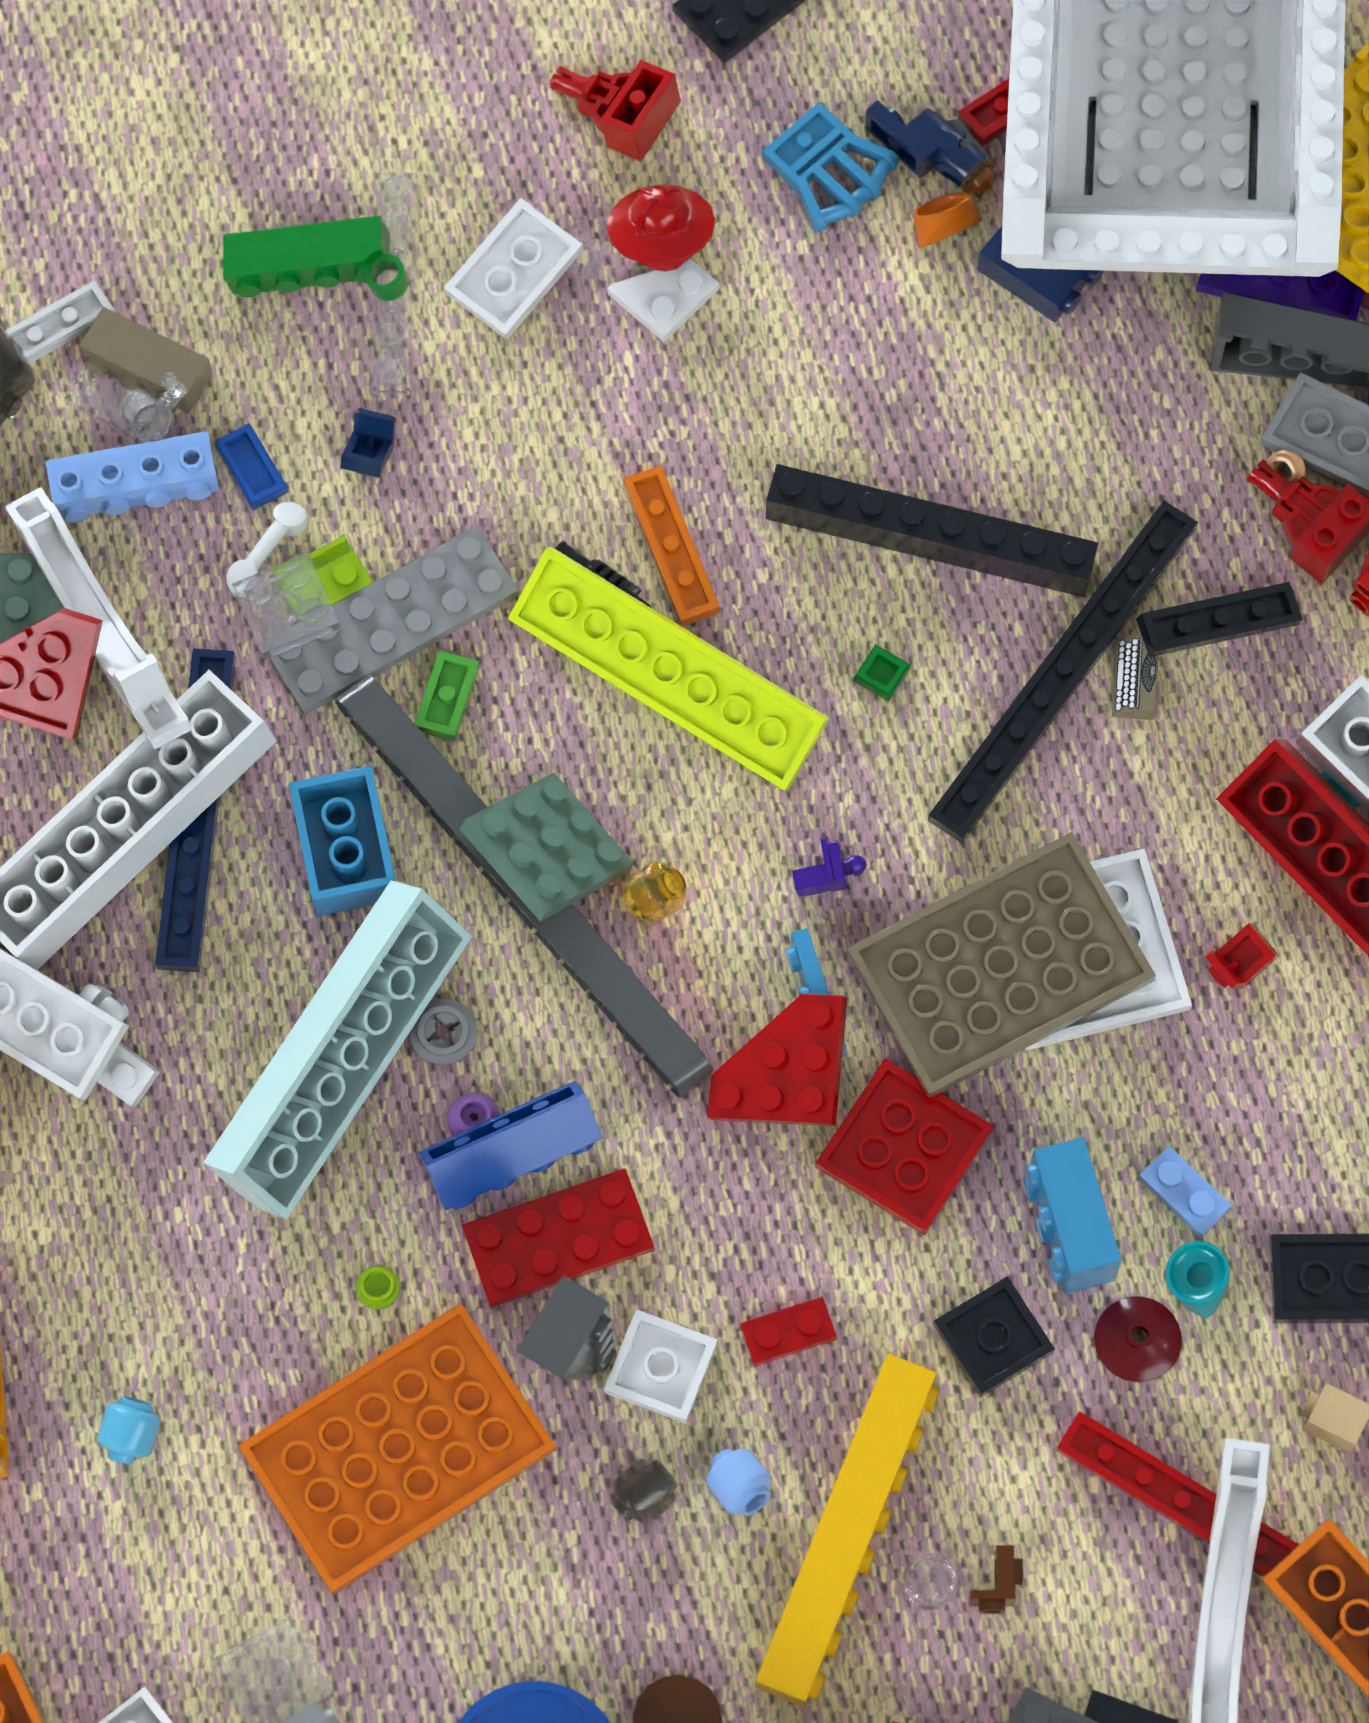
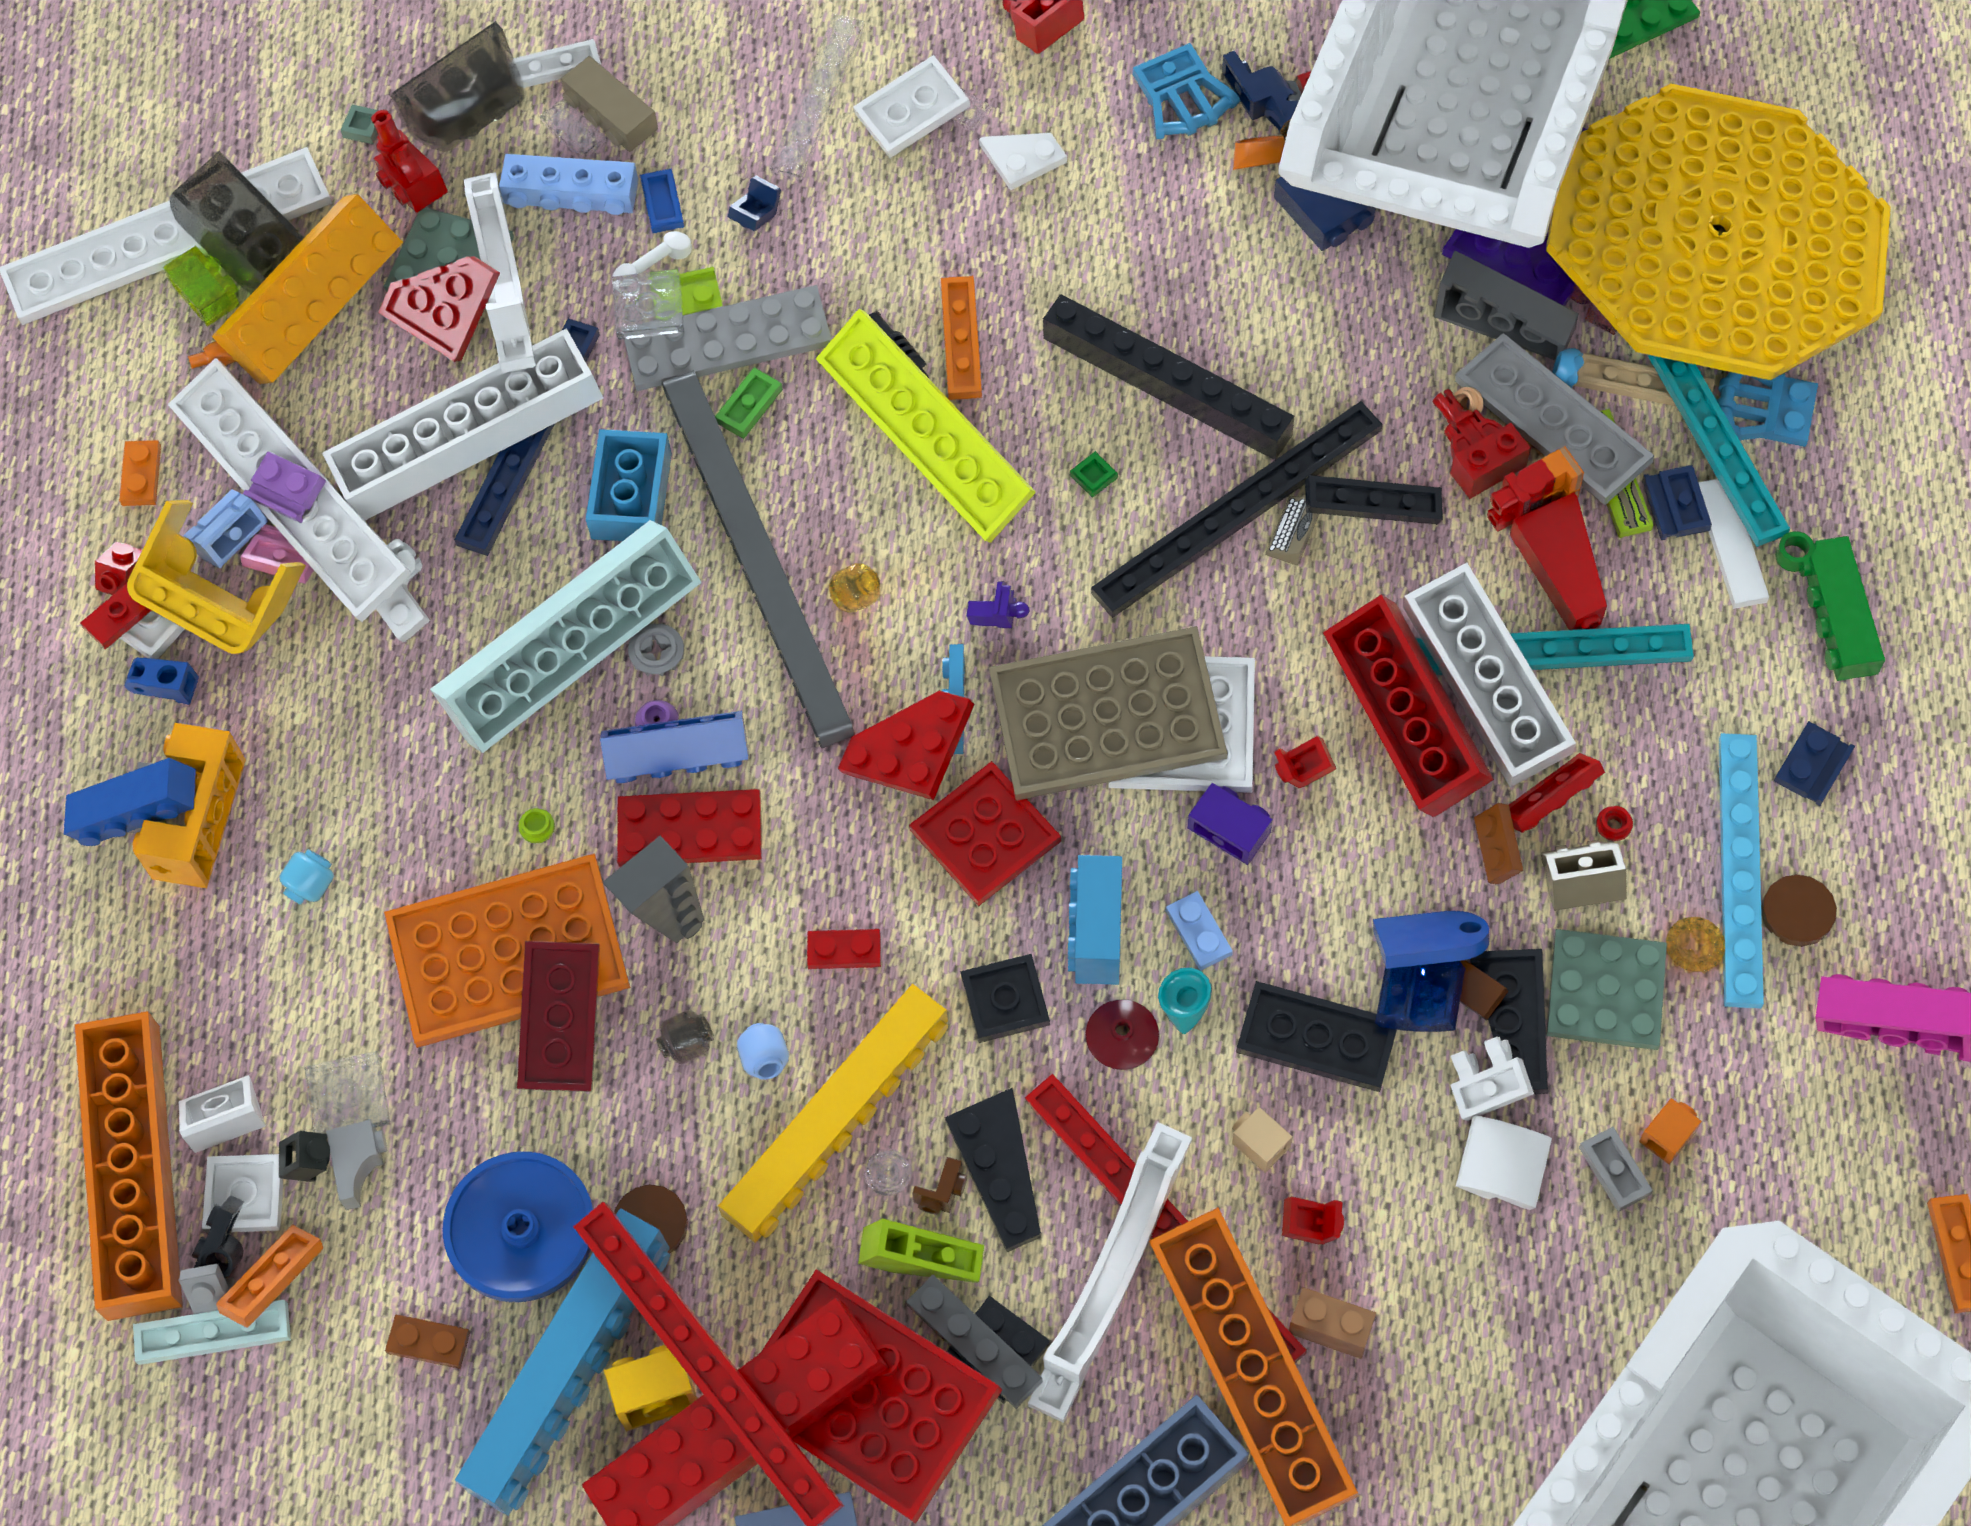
camera: 20 degrees right, 5 degrees down
(147, 415) = (593, 138): clear piece -> none
(313, 256) = (760, 59): green hinge -> none
(491, 1512) = (558, 1016): none -> dark red plate
(546, 846) = (782, 530): sand green plate -> none
(660, 1366) = (733, 946): white plate -> none
(661, 226) = (1033, 100): red helmet -> none
(998, 1664) = (919, 1252): none -> lime slope
(1046, 1529) = (996, 1159): none -> black wing
(1181, 1054) = (1230, 823): none -> dark purple brick

